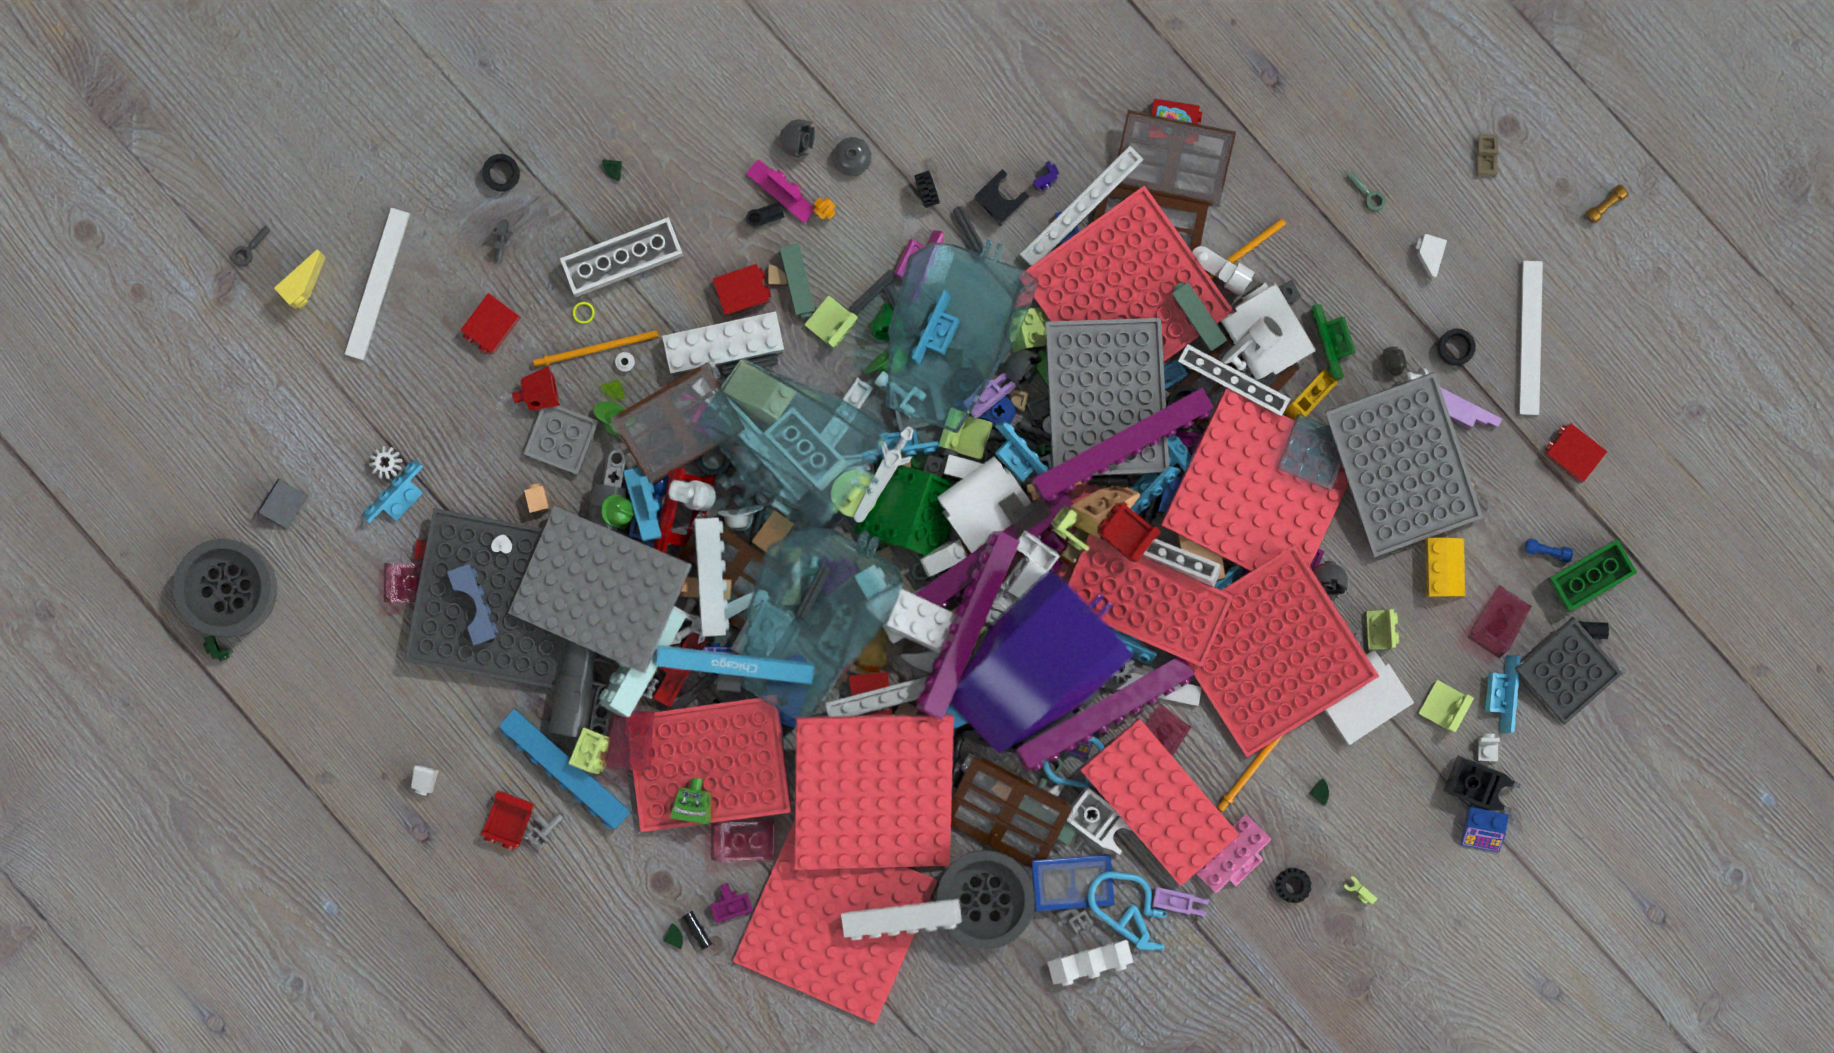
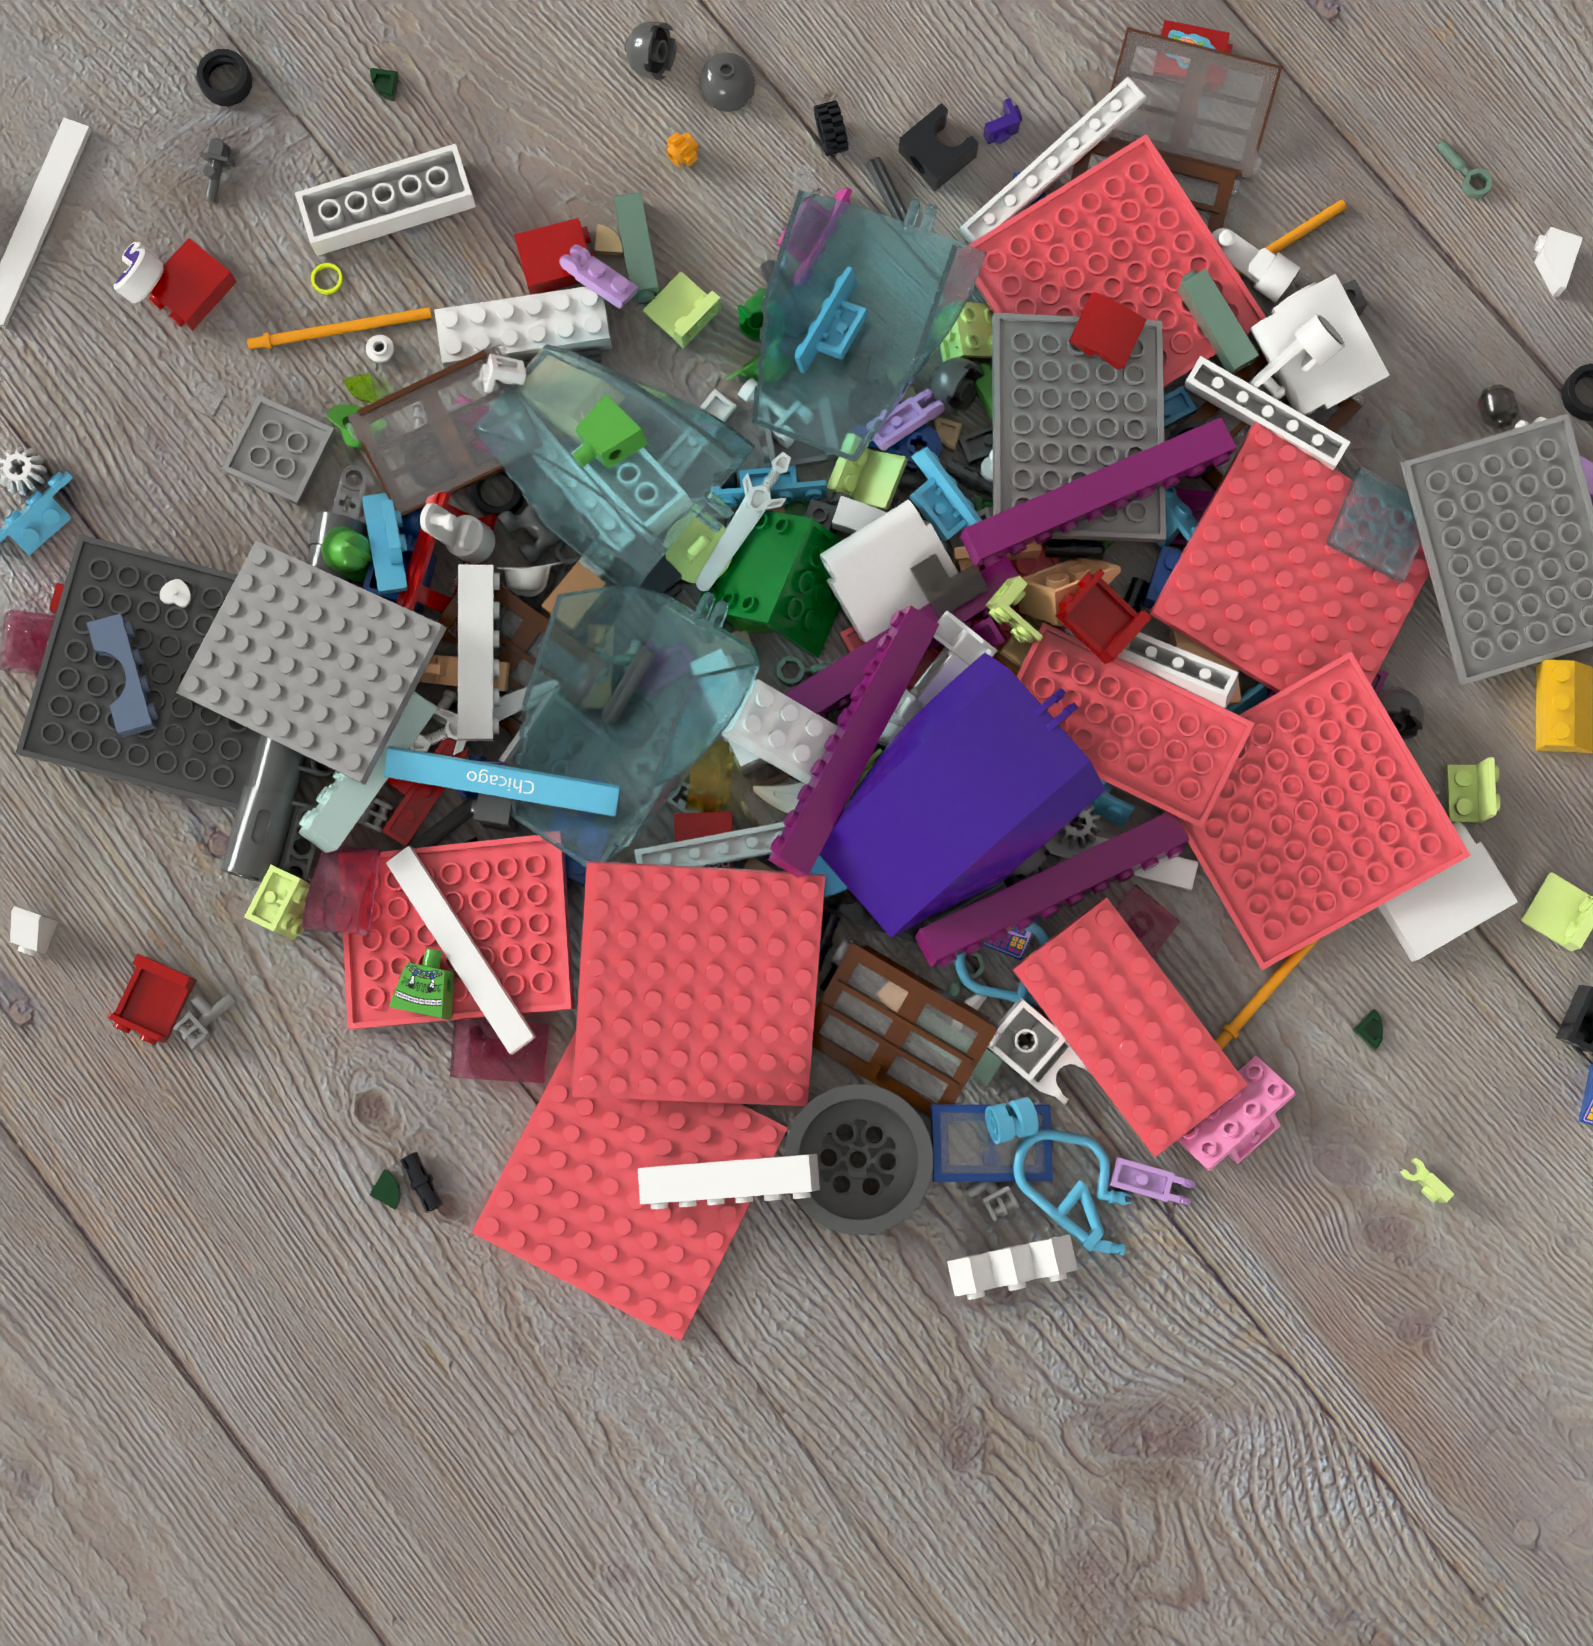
camera: 10 degrees right, 5 degrees down
(461, 320) = (141, 275): none -> white animal
(536, 498) = (235, 534): light nougat brick -> none
(538, 390) = (249, 378): red torso -> none
(556, 764) = (251, 941): dark azure brick -> none
(714, 381) = (502, 369): none -> white bracket
(714, 776) = (461, 950): none -> white tile
(730, 905) = (474, 1146): magenta hinge -> none
(767, 215) = (598, 153): black piece -> none
(774, 307) = (598, 276): none -> lavender hinge
(781, 190) = (623, 121): dark pink bracket -> none
(793, 435) = (608, 435): none -> bright green torso
(872, 292) = (745, 270): dark grey axle -> none
(943, 557) = (824, 648): white slope -> none
(1086, 867) = (1015, 1119): none -> medium azure wheel
(1123, 329) = (1107, 330): none -> red slope
(1152, 486) = (1140, 559): medium azure bracket -> none
(1293, 873) = (1341, 1159): black tyre -> none
(1310, 395) = (1376, 447): yellow slope -> none
(1335, 338) = (1415, 371): green bracket -> none

